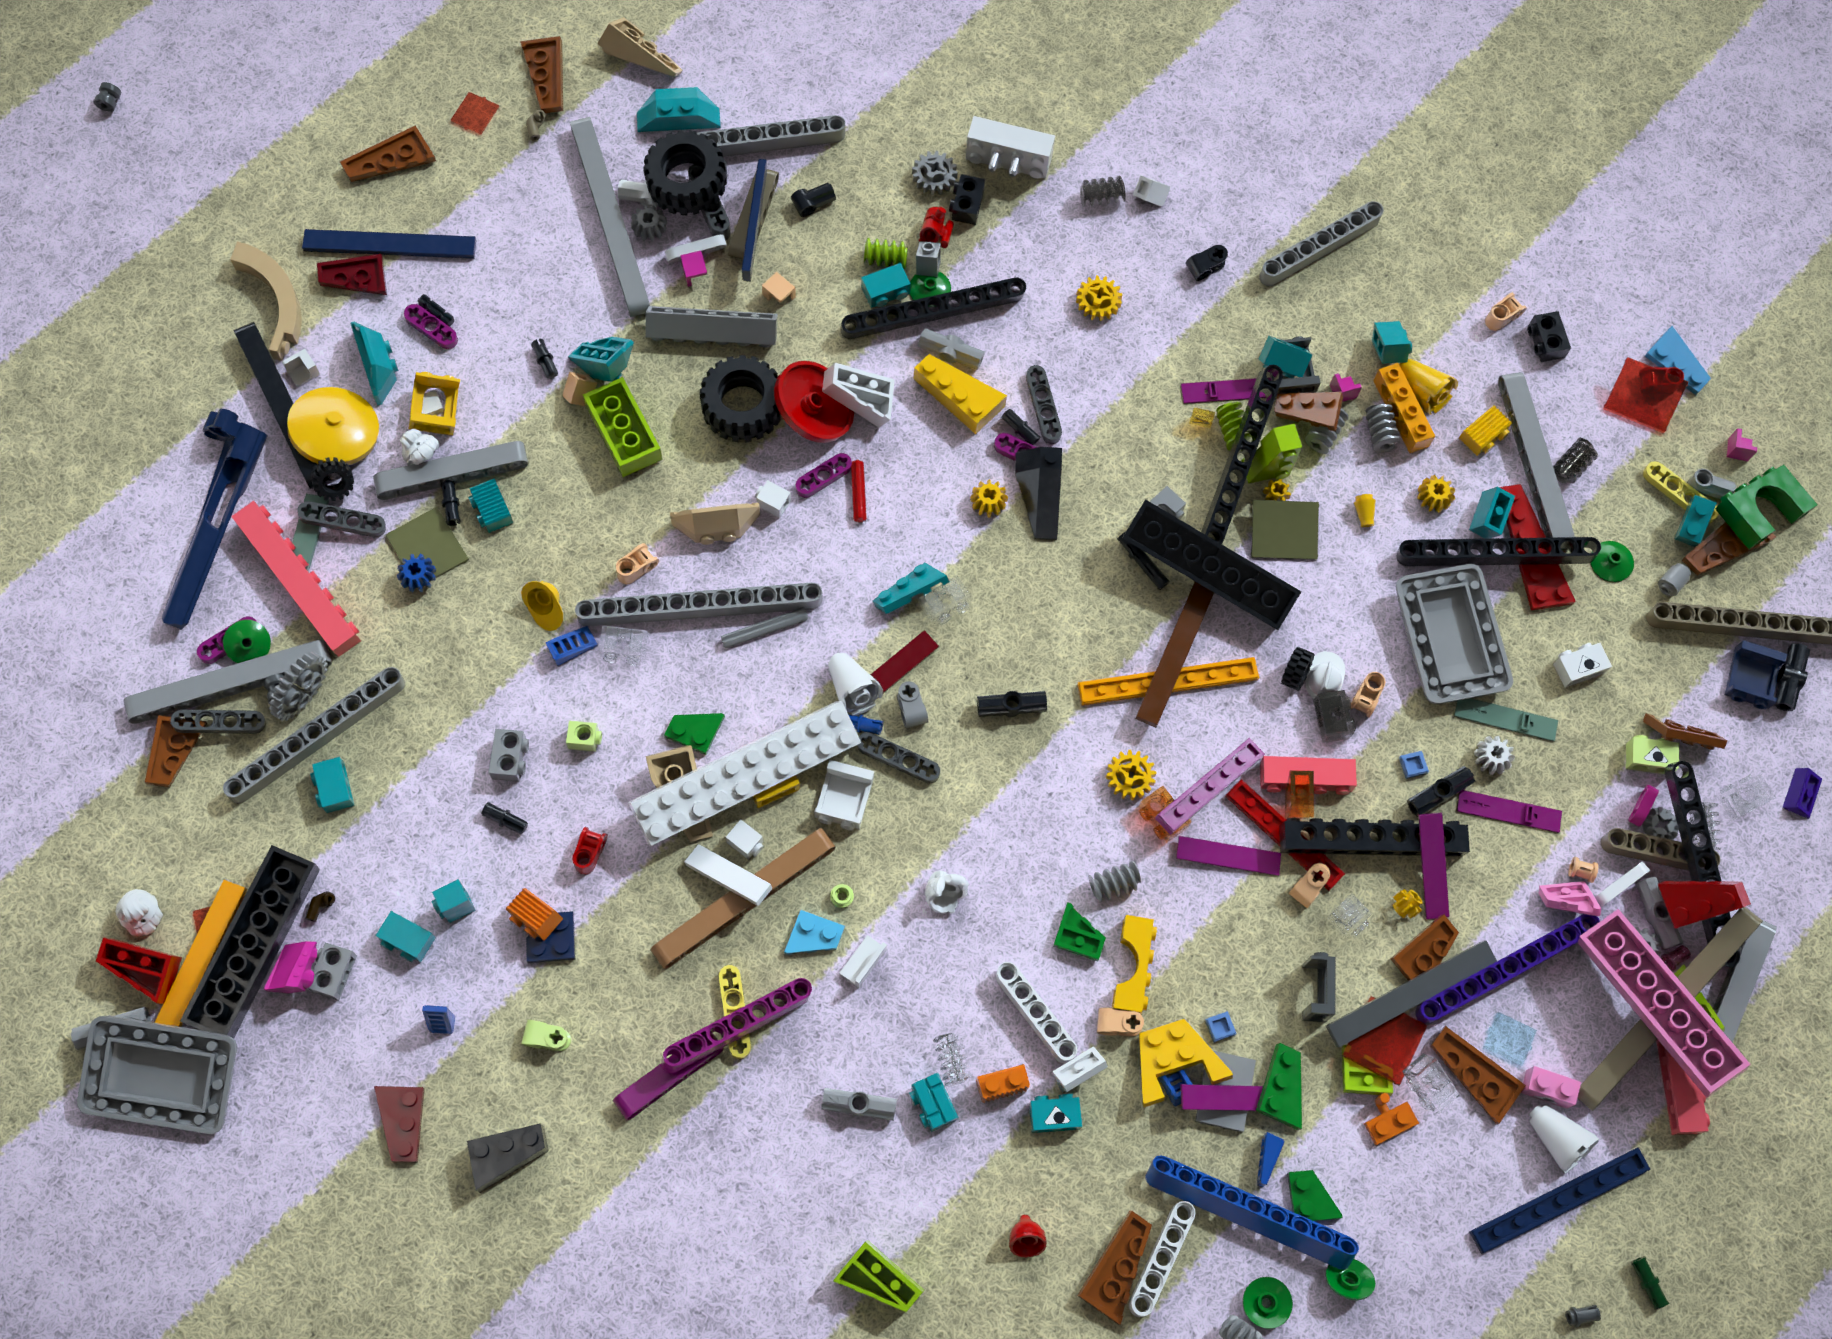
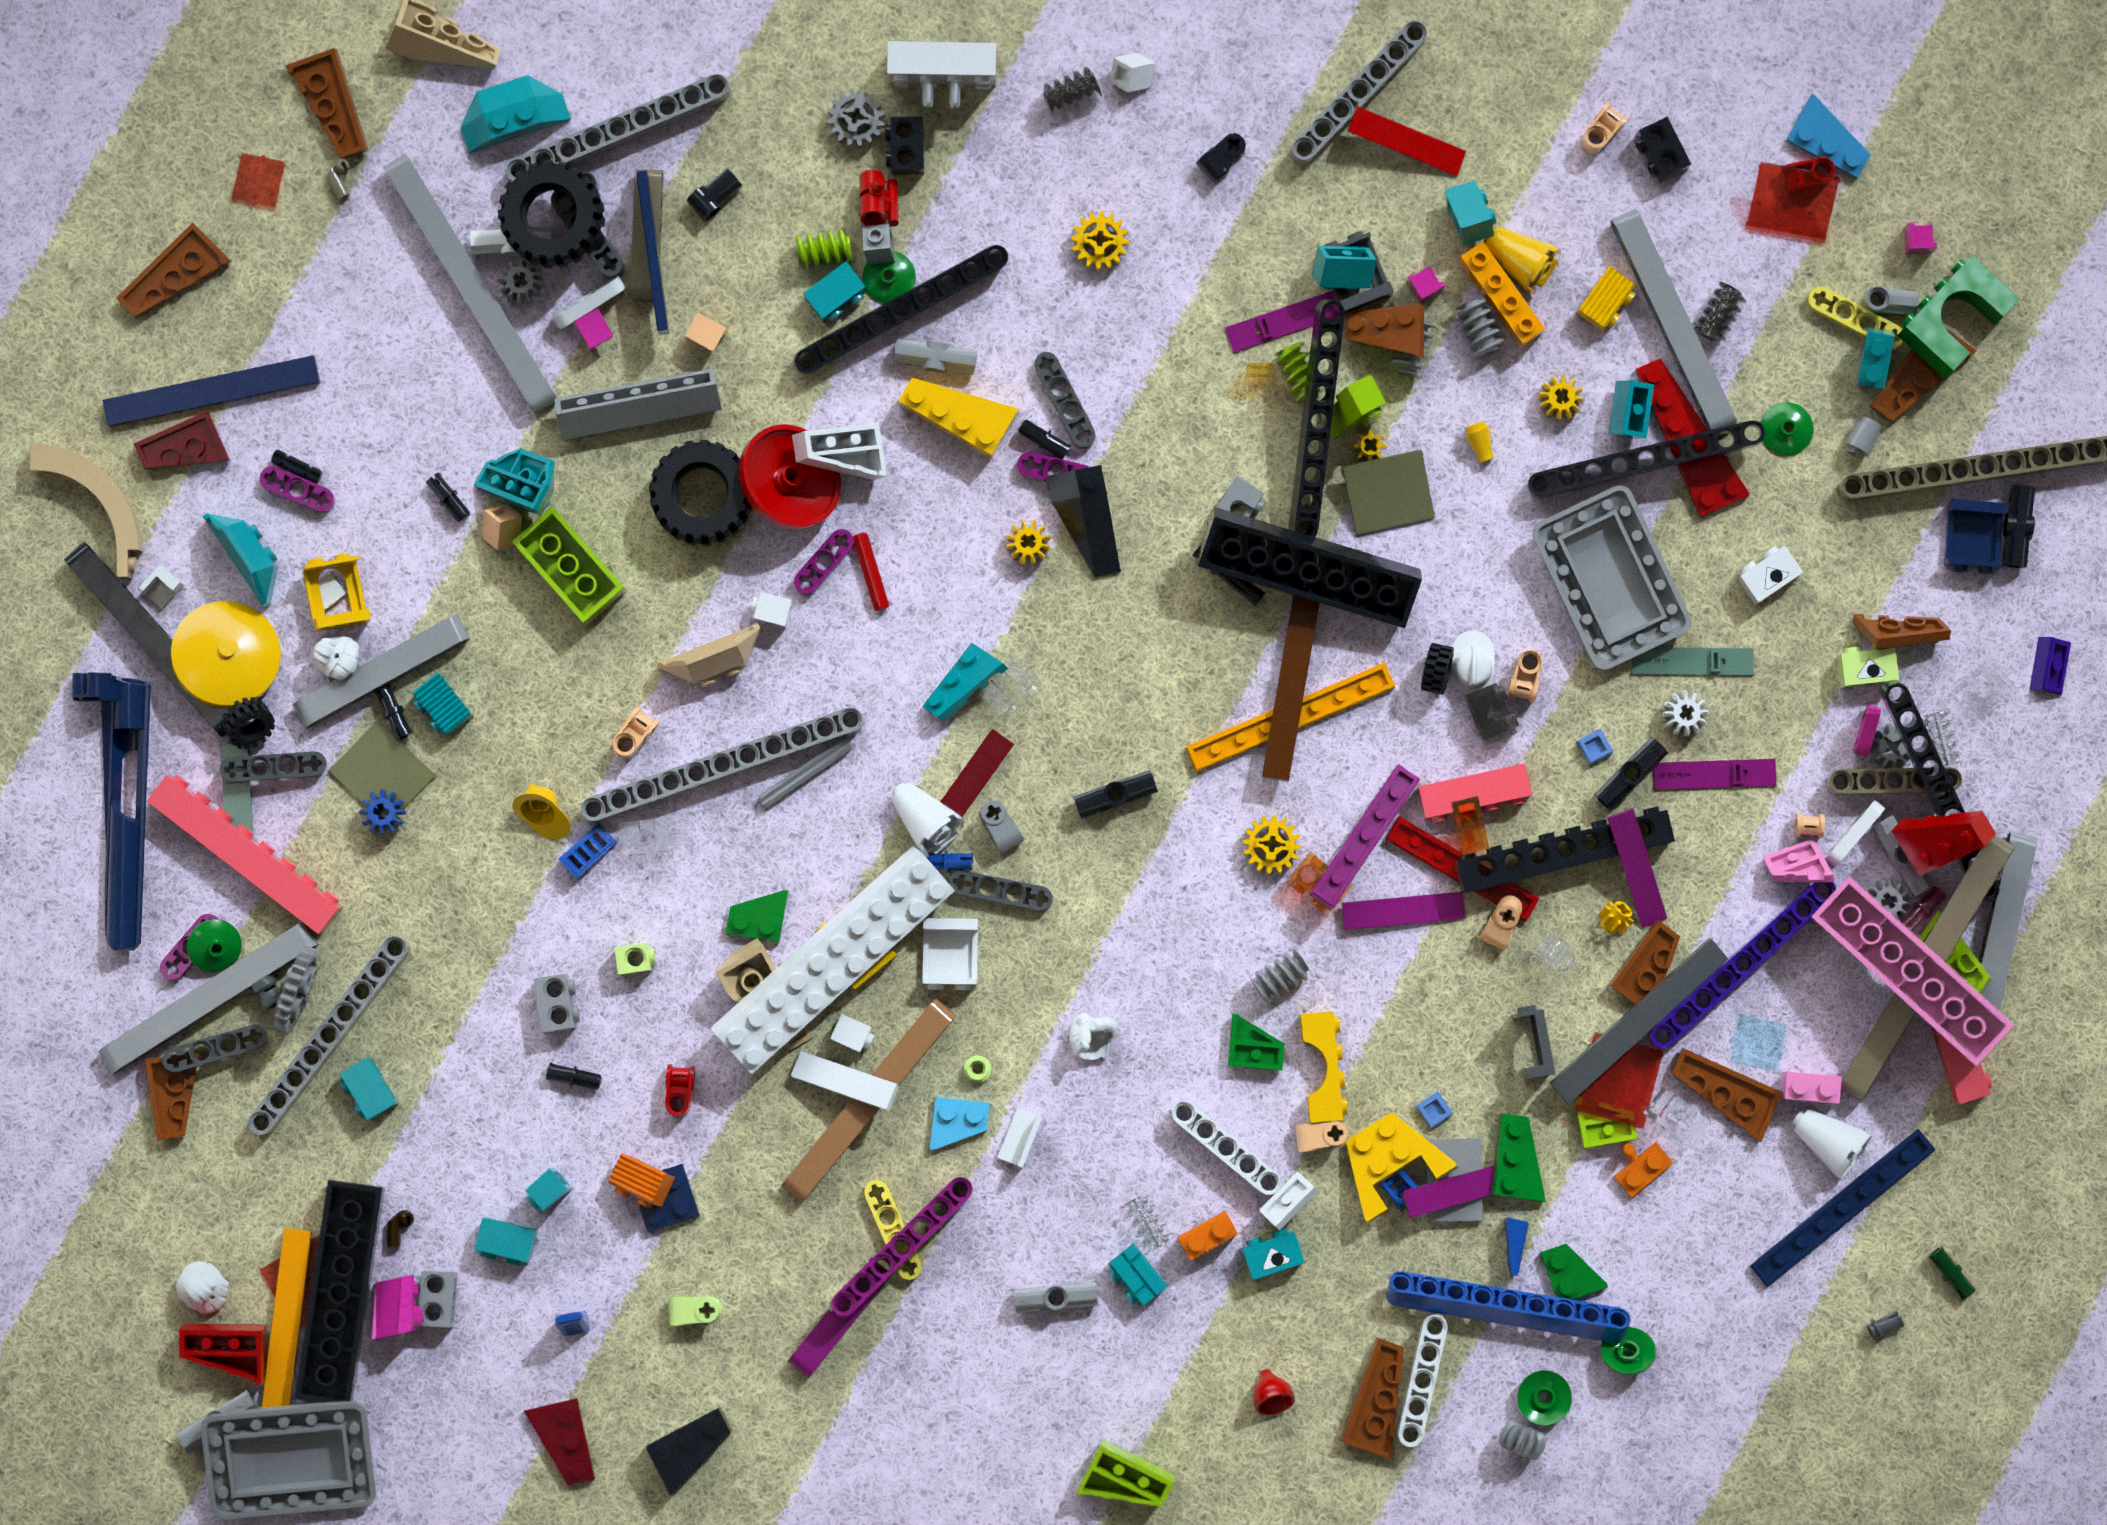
camera: 10 degrees left, 15 degrees up
(1351, 284) = (1406, 141): none -> red piece

